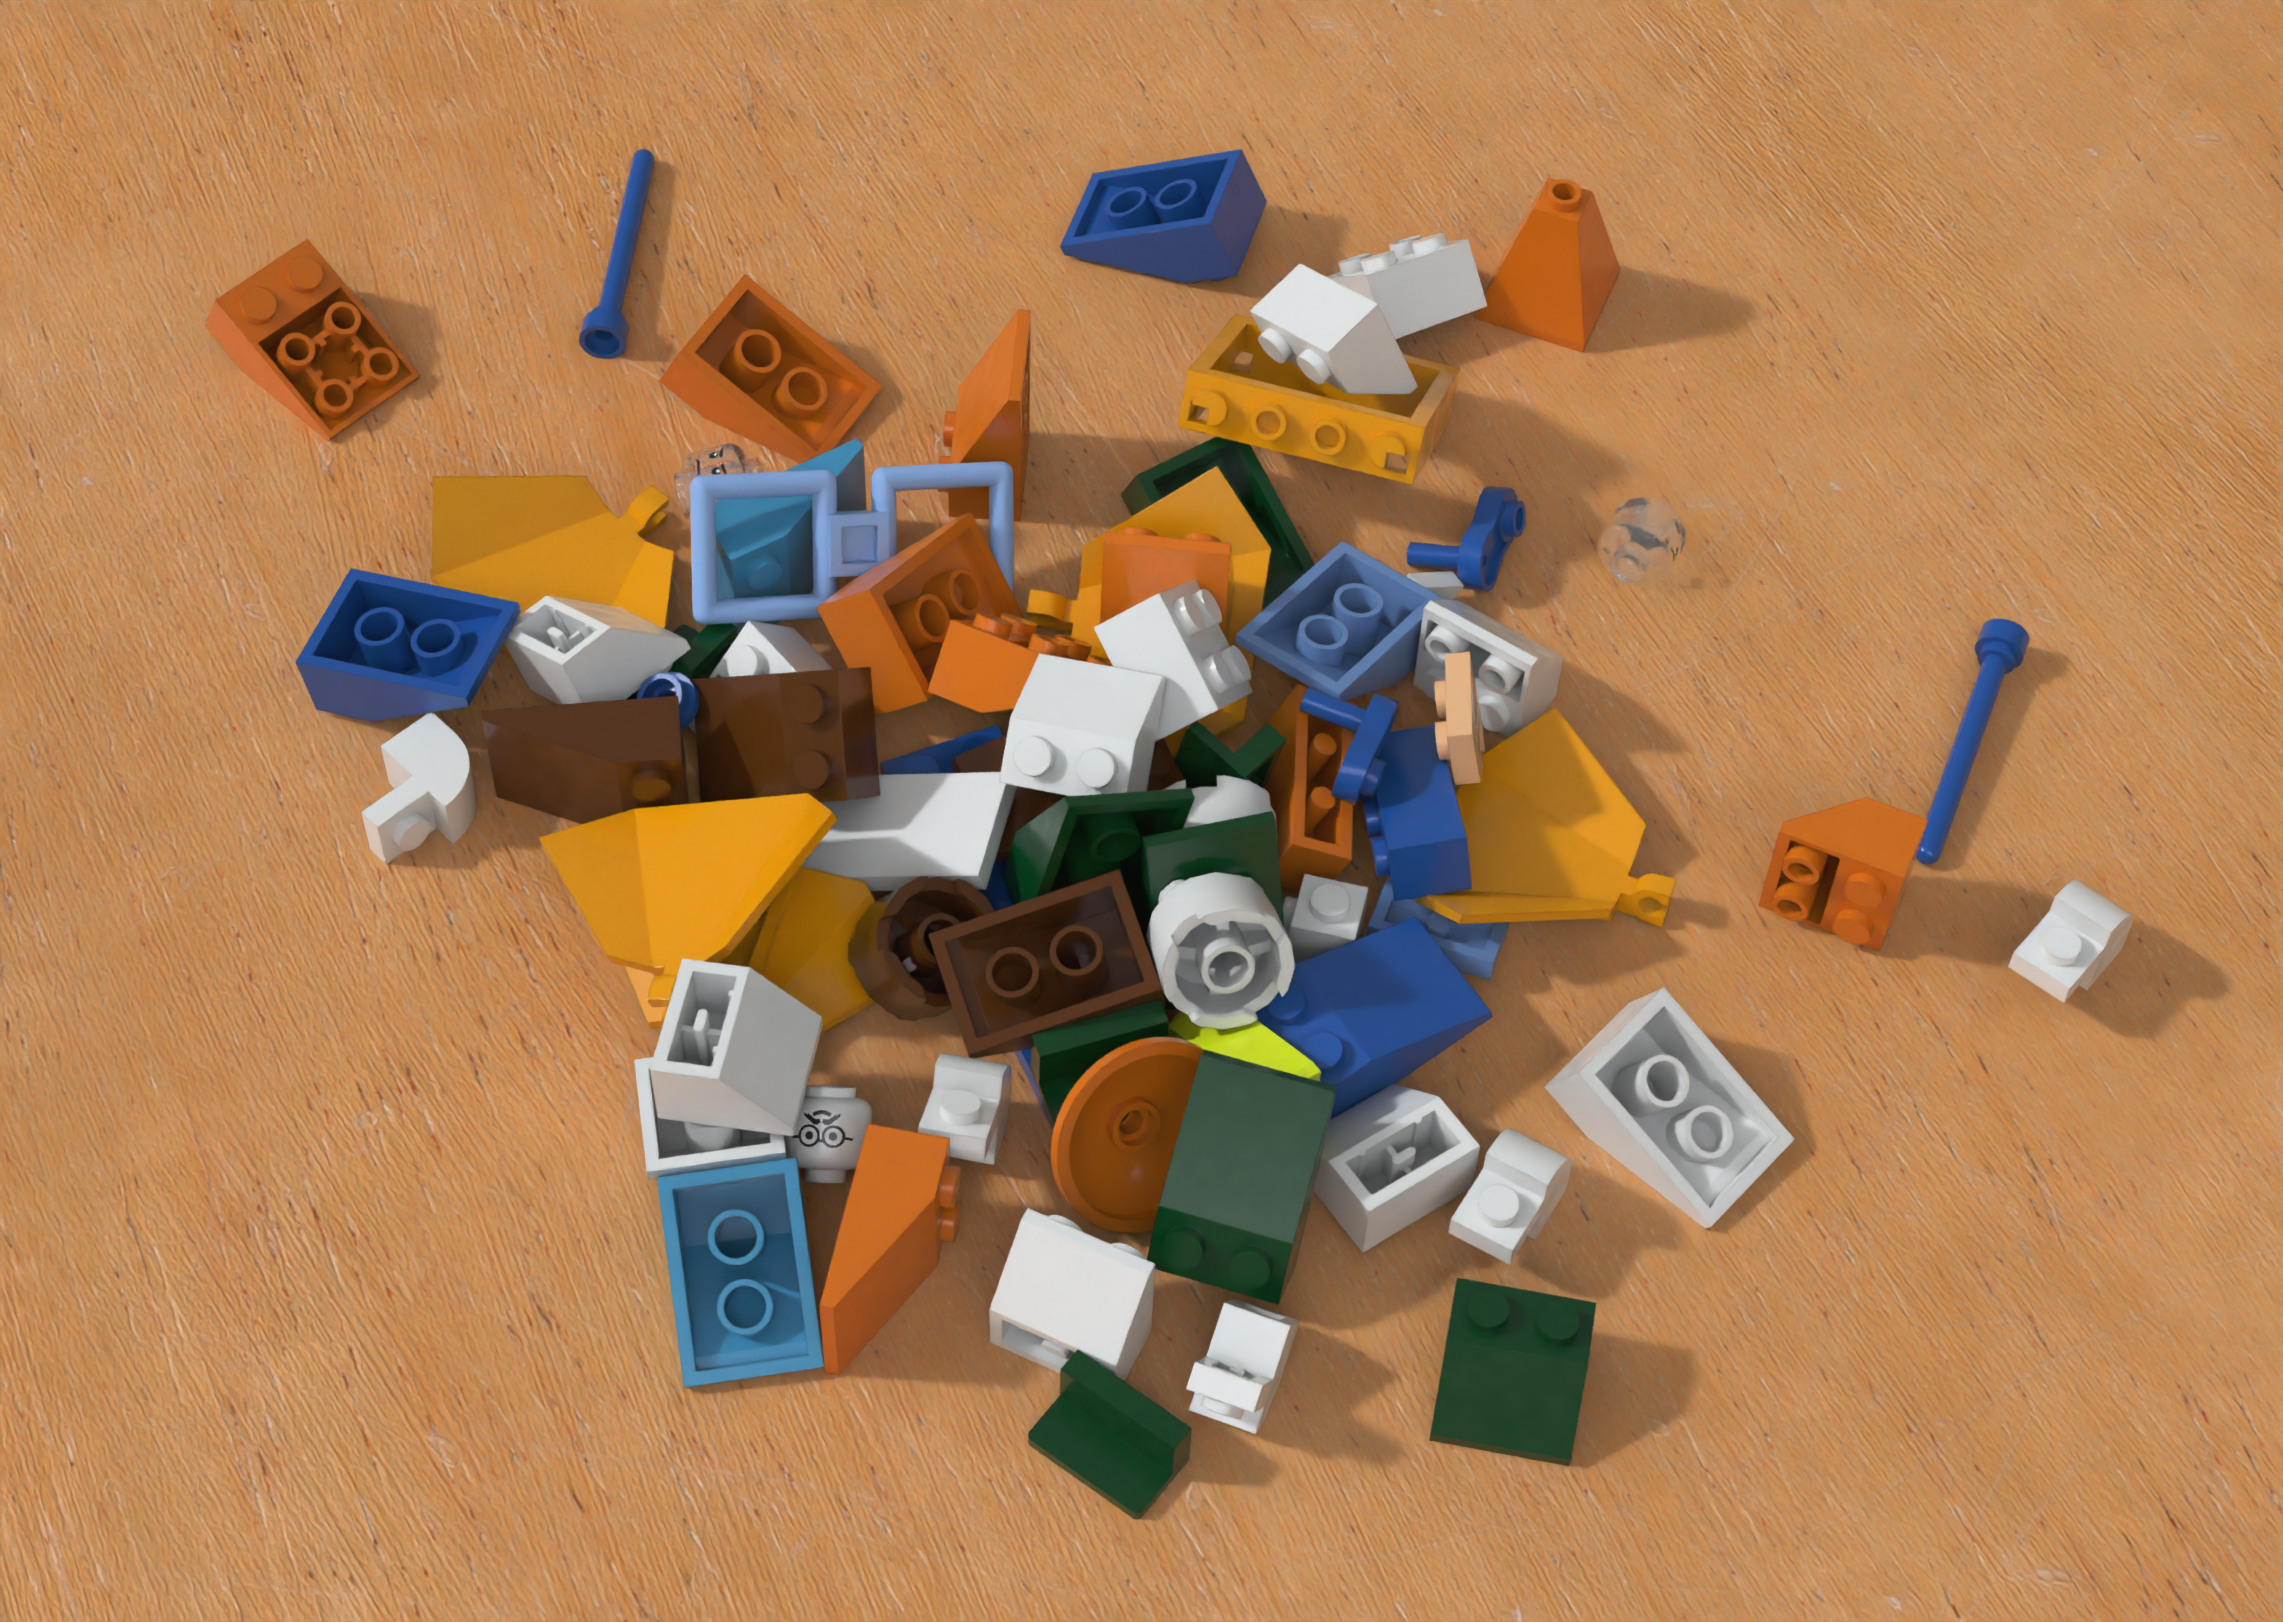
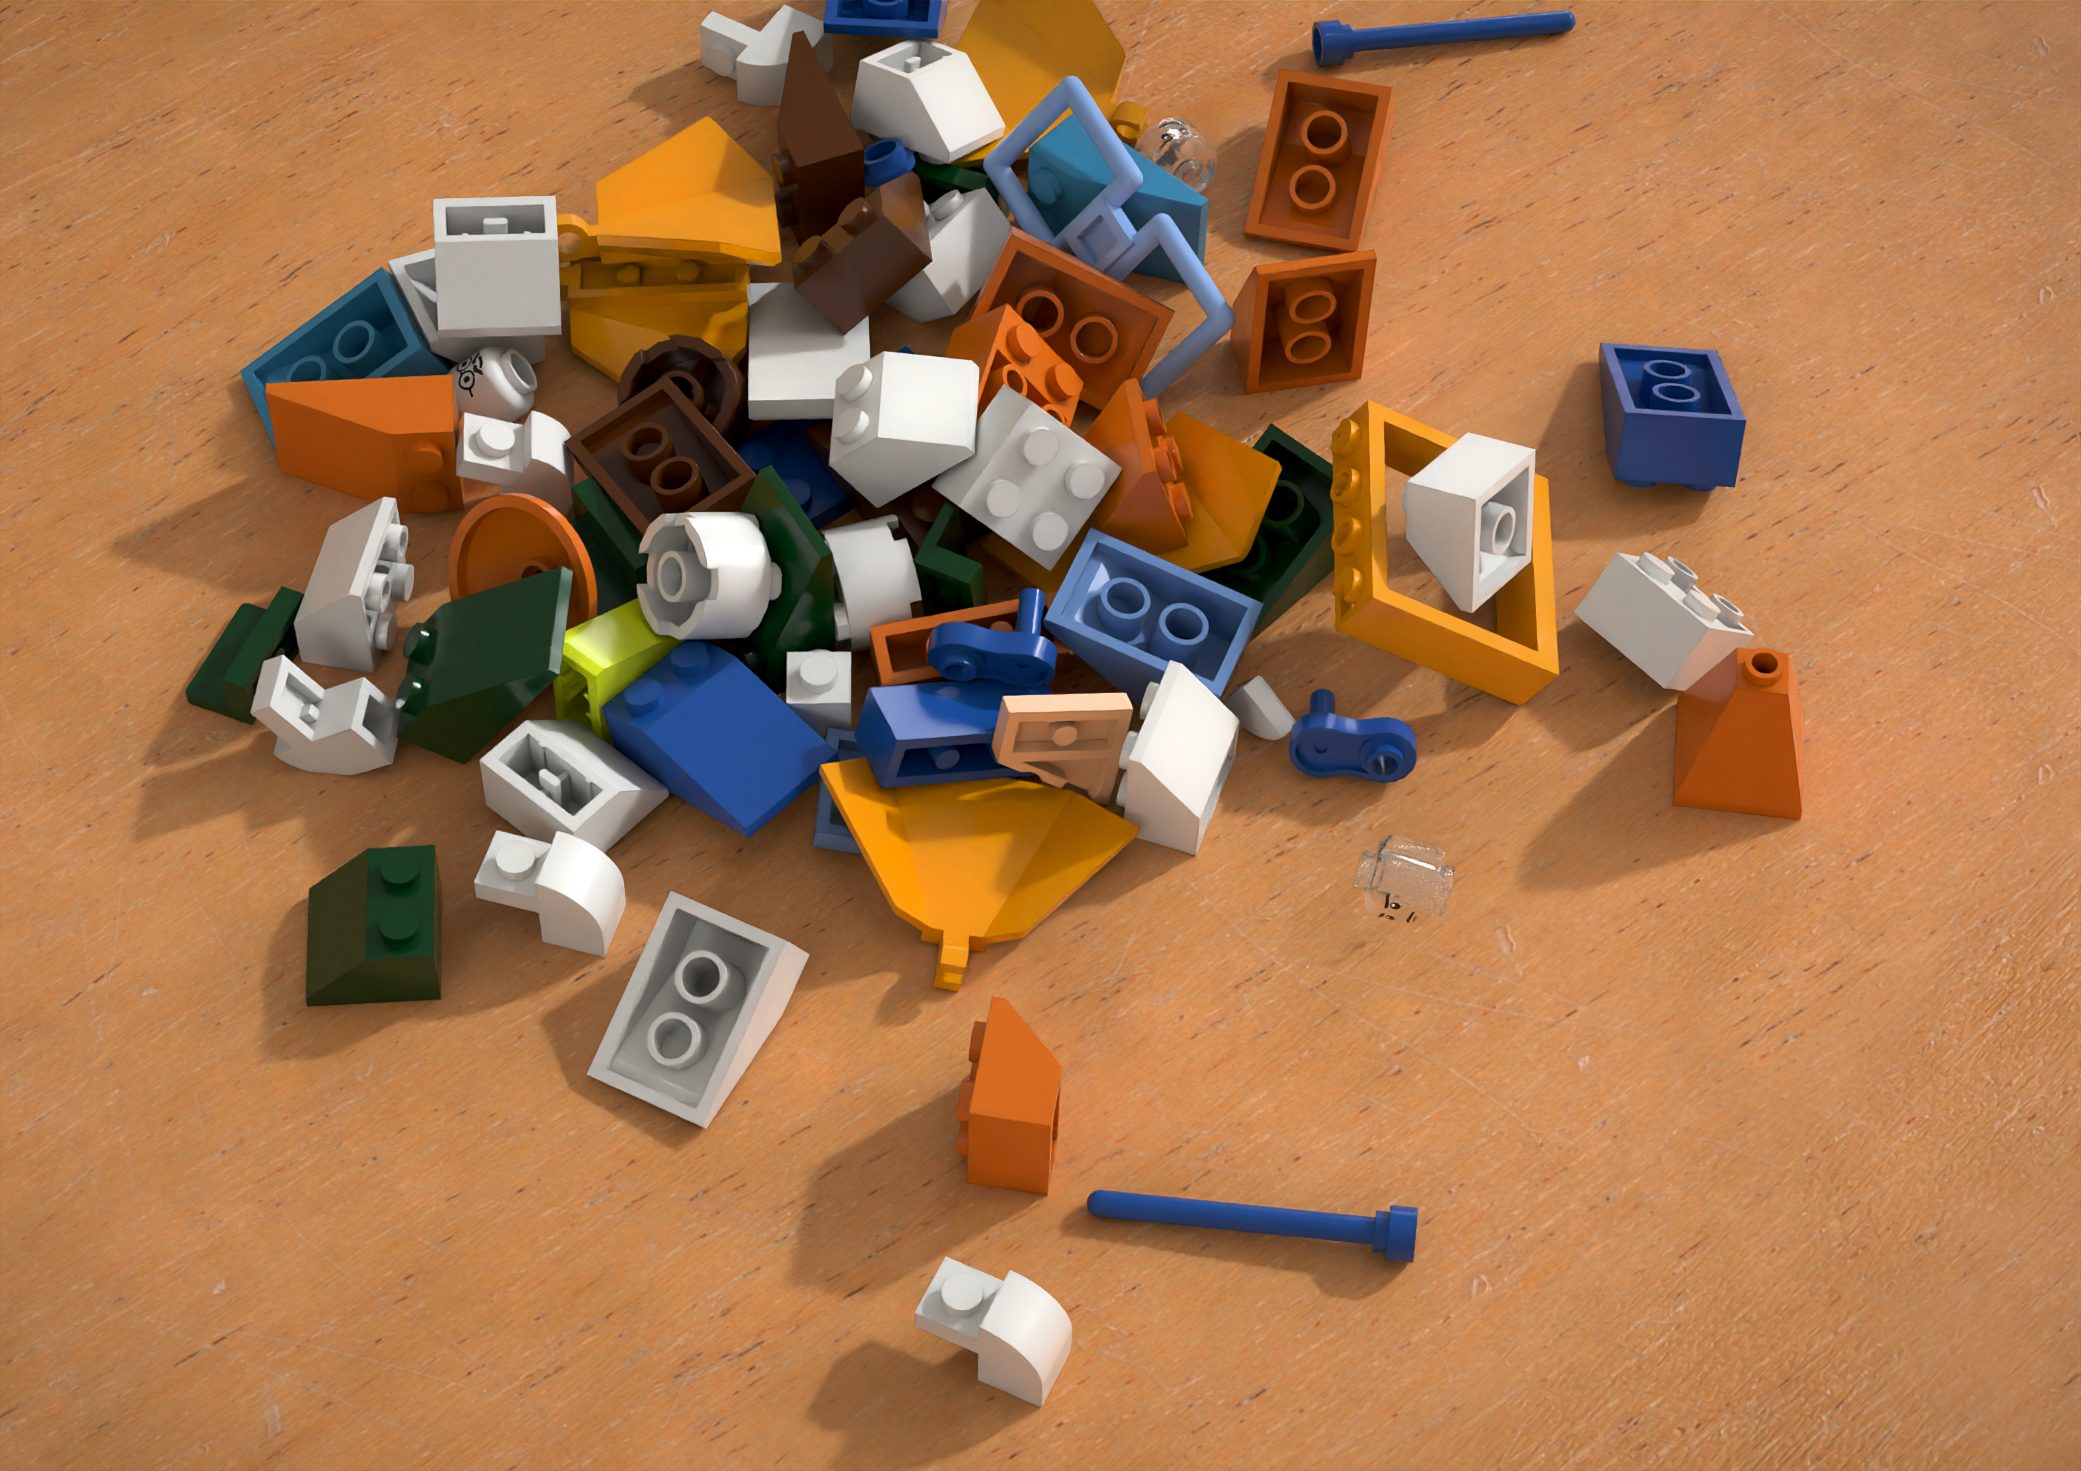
camera: 75 degrees right, 0 degrees up
(1090, 838) = (781, 437): dark green slope -> none

